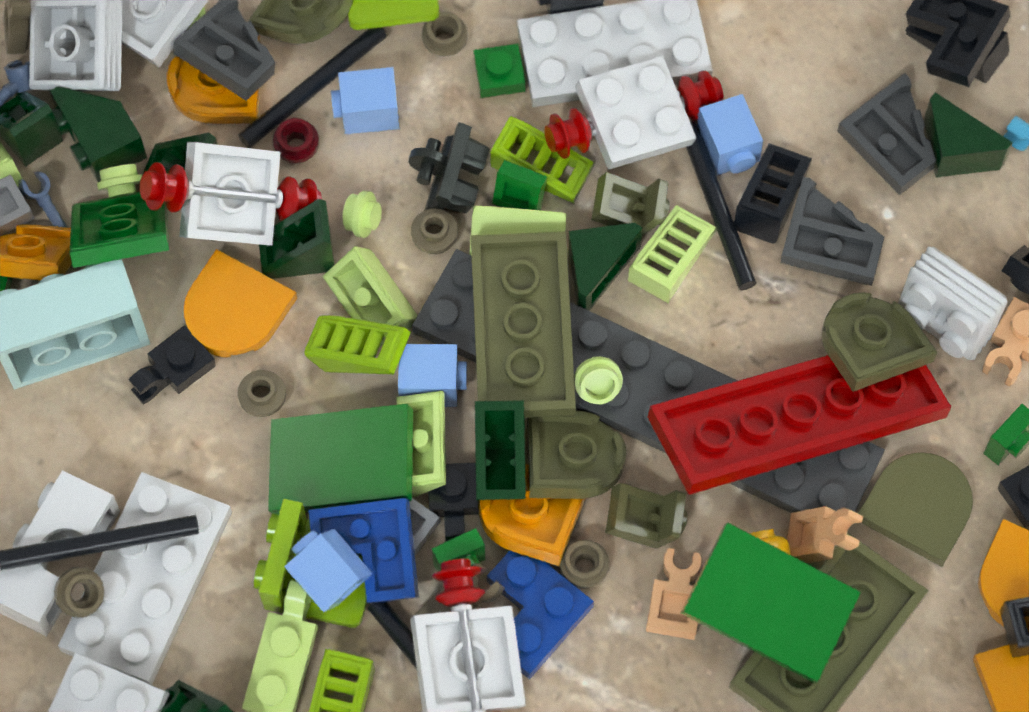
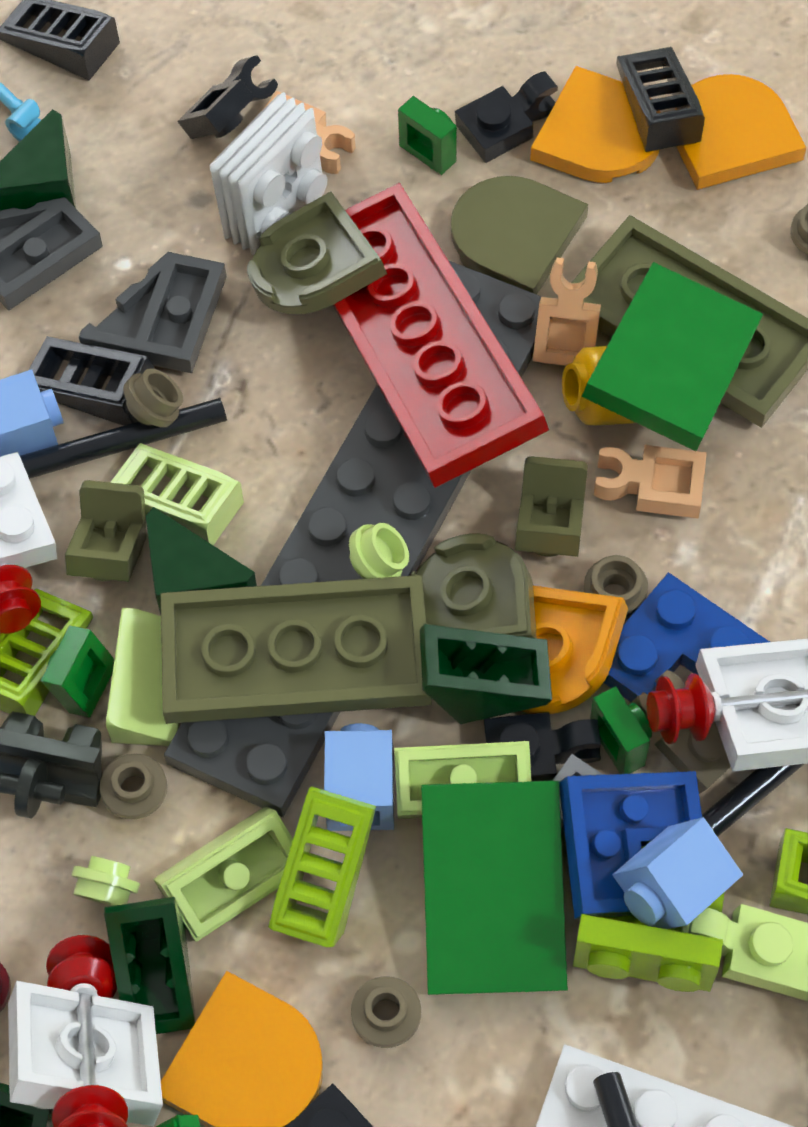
camera: 90 degrees left, 5 degrees down
(751, 232) = (153, 398): none -> dark tan plate

